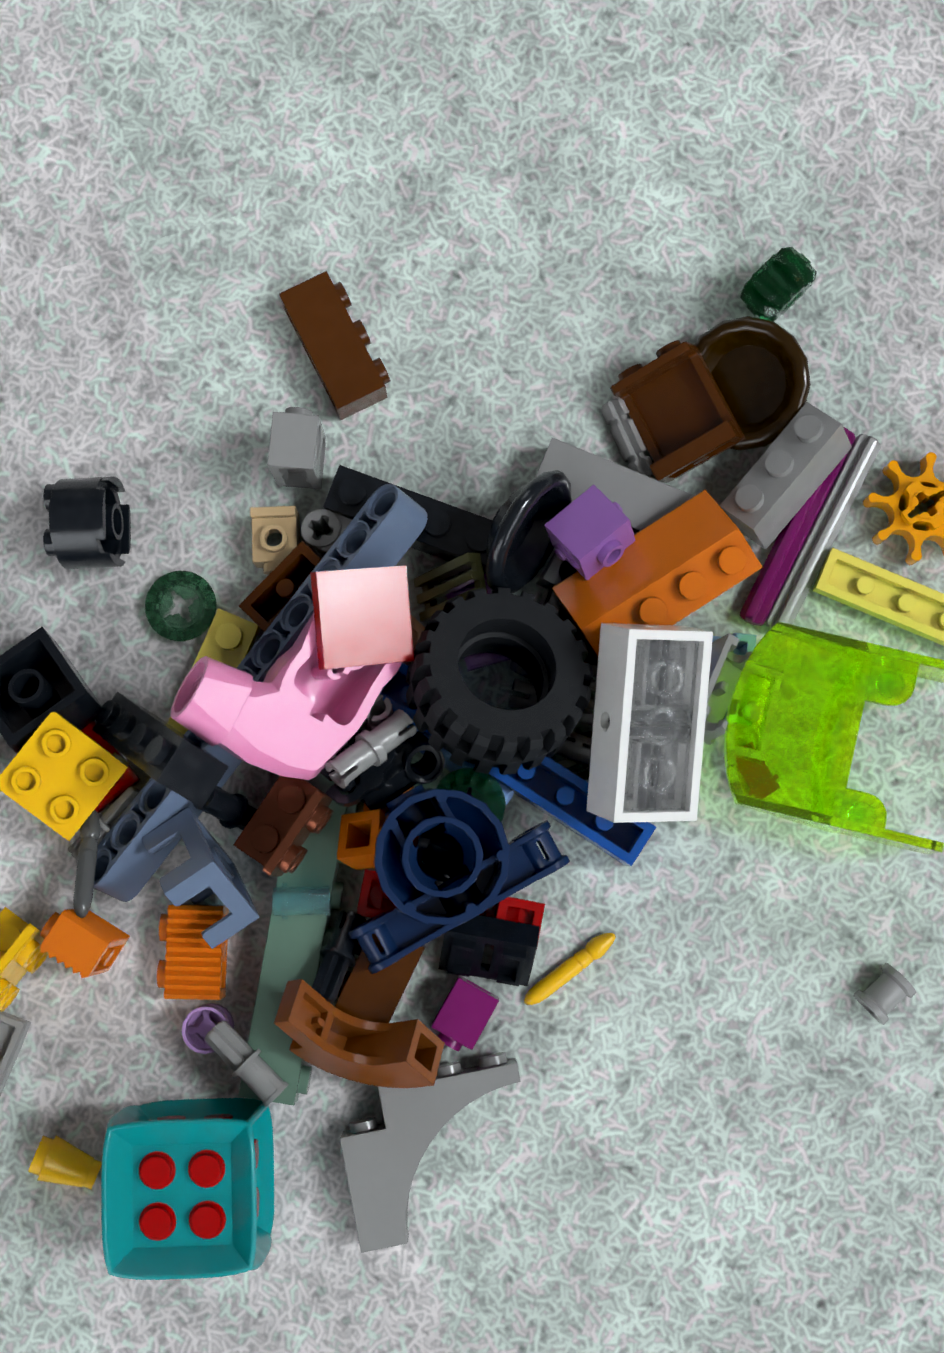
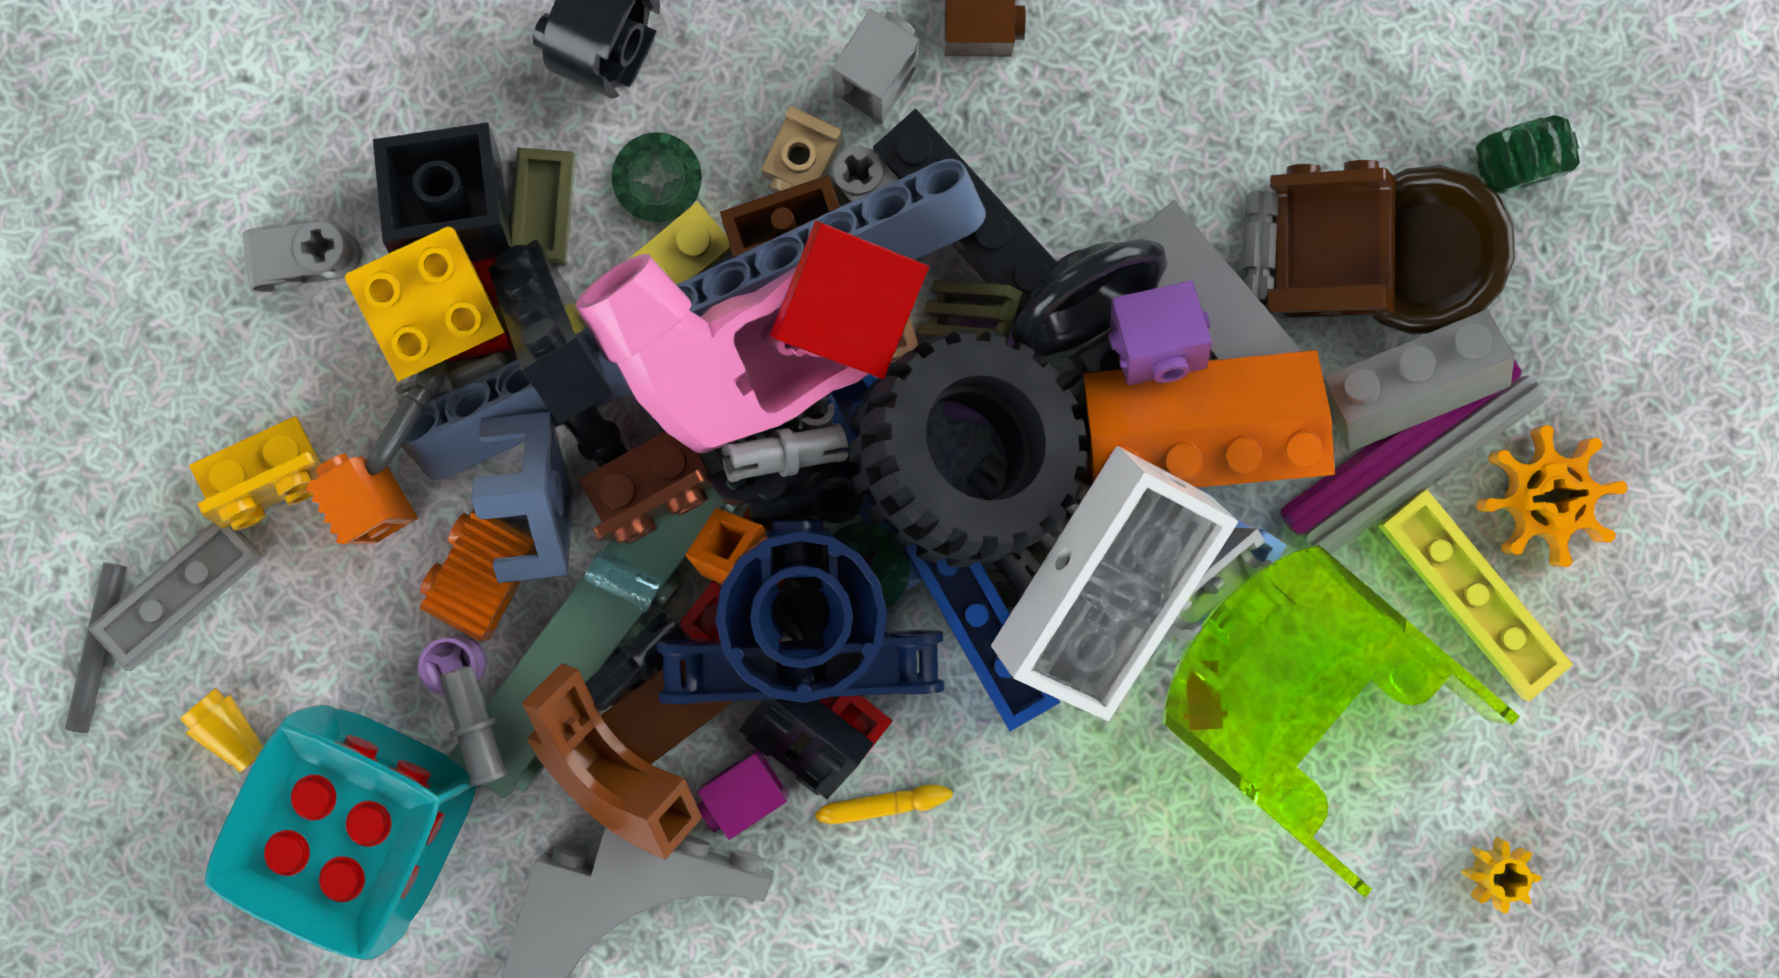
camera: 25 degrees right, 5 degrees up
(107, 662) = (543, 200): none -> olive tile

